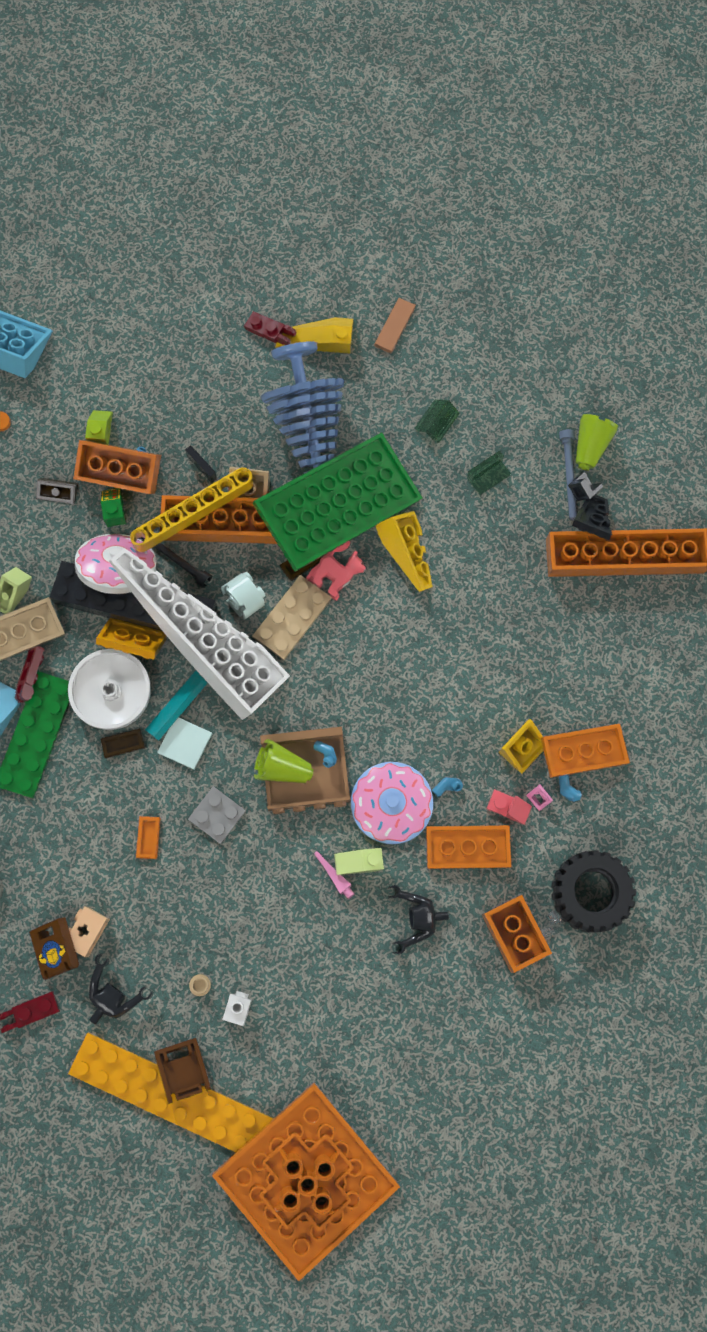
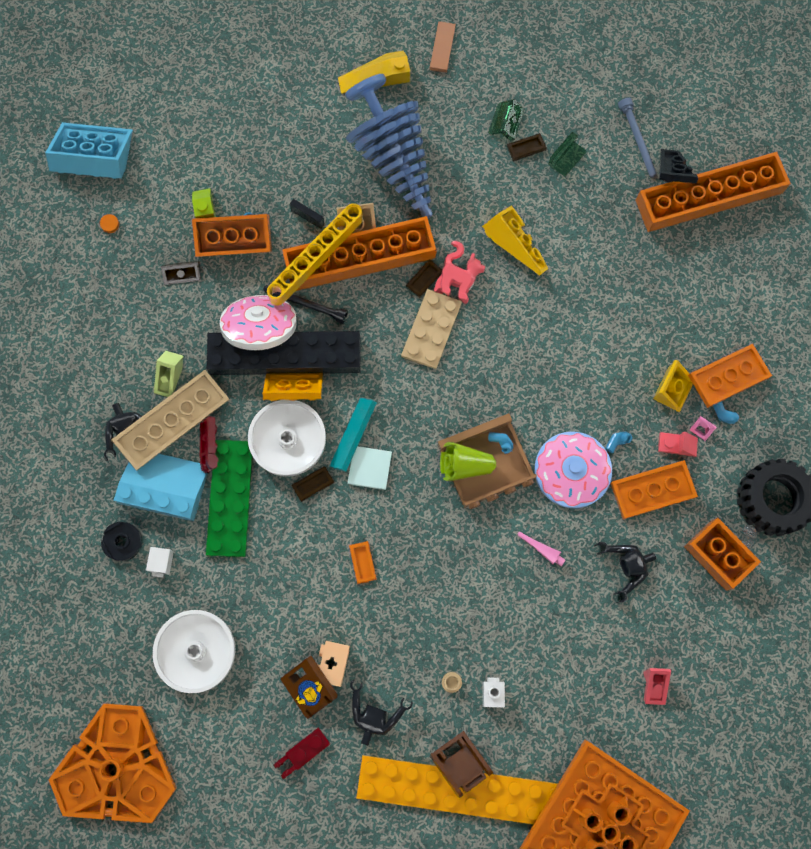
camera: 15 degrees left, 0 degrees up
(113, 507) = (238, 273): green slope -> none
(217, 815) = (419, 524): light grey plate -> none
(223, 656) = (381, 378): white wedge -> none
(244, 595) = (383, 320): light aqua brick -> none
(269, 328) = (331, 77): dark red hinge -> none
(337, 501) = (443, 213): green plate -> none
(359, 861) = (562, 529): yellowish green slope -> none
(405, 1050) = (656, 686): none -> coral slope
(449, 453) = (526, 147): none -> dark brown tile
(583, 488) = (654, 146): black panel -> none
(593, 440) = (651, 100): lime cone -> none

